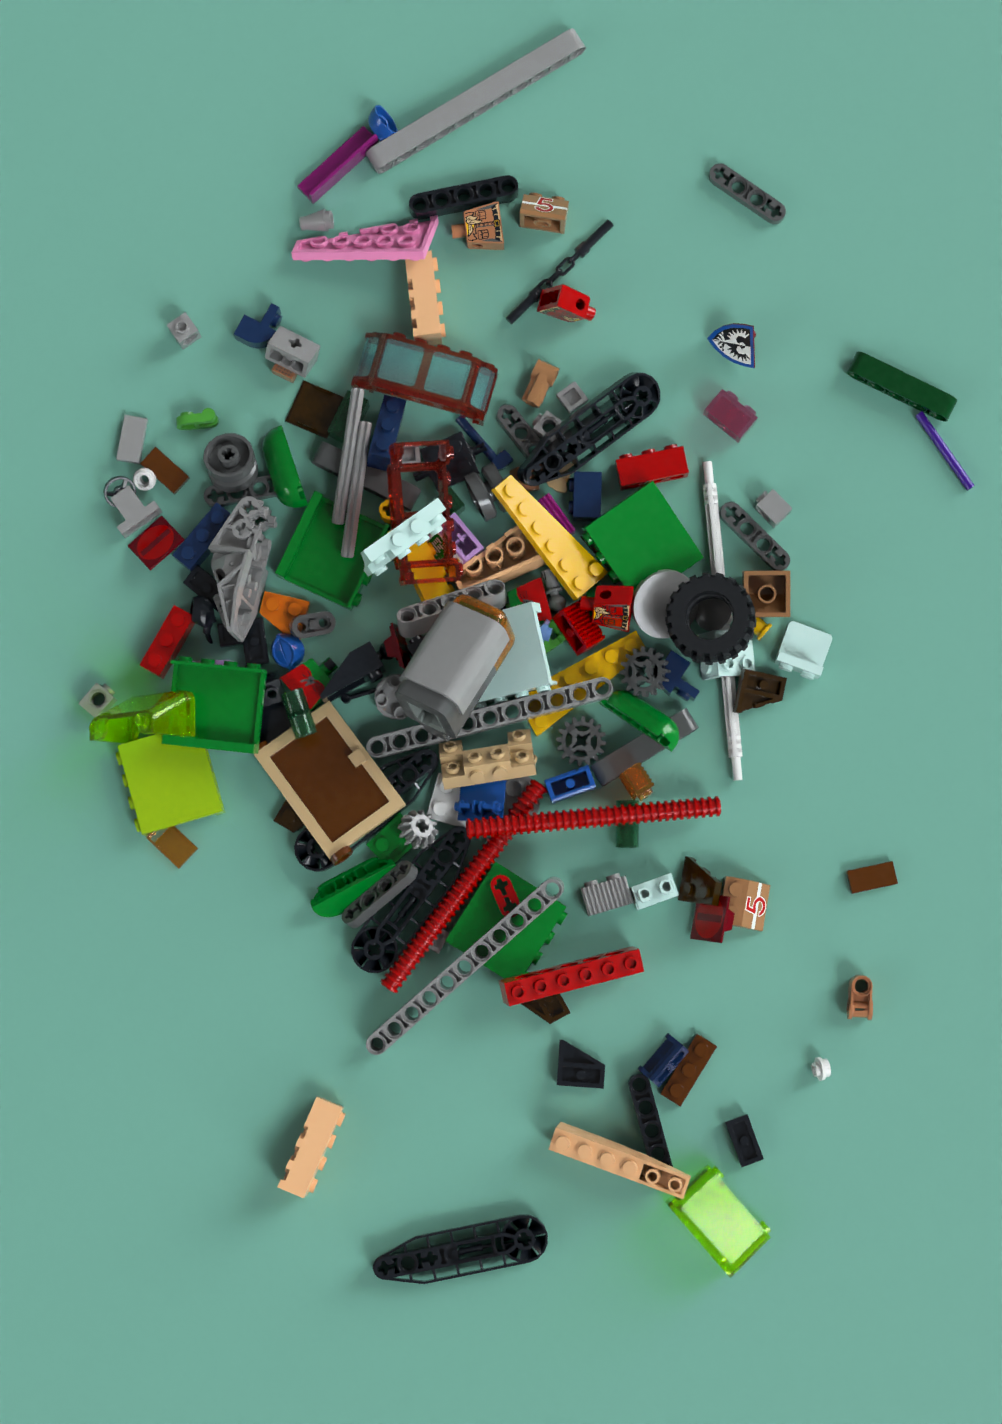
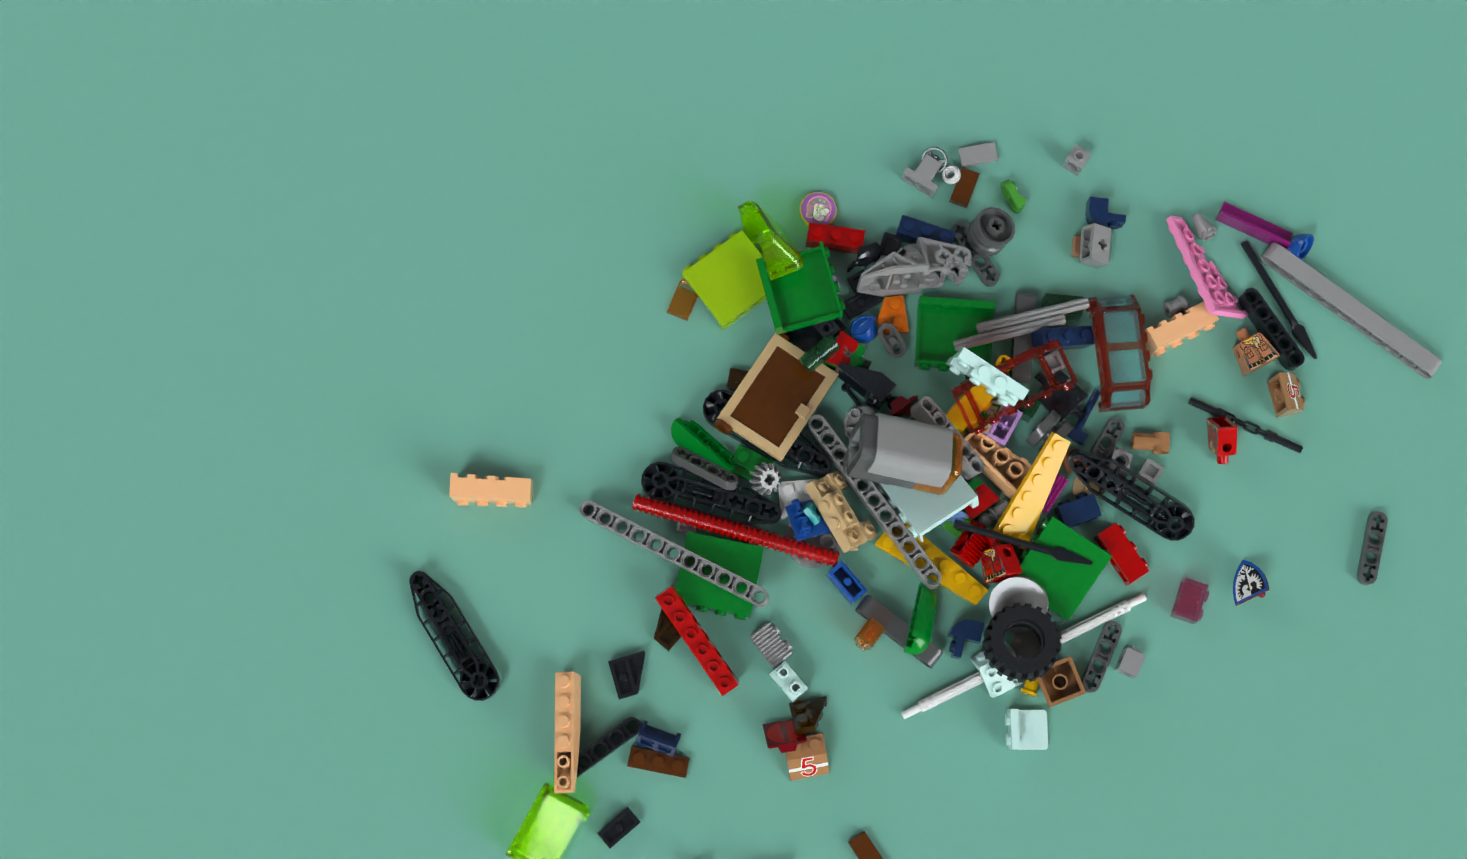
camera: 60 degrees right, 5 degrees down
(88, 700) = (766, 197): light grey brick -> none
(125, 648) = (818, 208): none -> tile
(156, 542) = (906, 200): piece -> none
(282, 469) = (1002, 272): green brick -> none
(314, 409) = (1057, 278): dark brown piece -> none
(396, 291) = (1175, 306): none -> light grey bush
(476, 168) = (1297, 329): none -> black piece
(477, 793) = (811, 513): none -> teal tile
(498, 894) = (736, 561): red beam -> none
(574, 733) = (892, 584): dark grey gear -> none
(593, 817) = (828, 610): red piece -> none
(627, 538) = (1058, 553): none -> black piece
(627, 835) = (833, 640): clear green pin -> none
(654, 668) = (961, 615): dark grey gear -> none
(757, 690) = (981, 704): dark brown wing -> none
(901, 386) = (1271, 730): dark green beam -> none
(944, 450) = (1234, 785): dark purple bar -> none

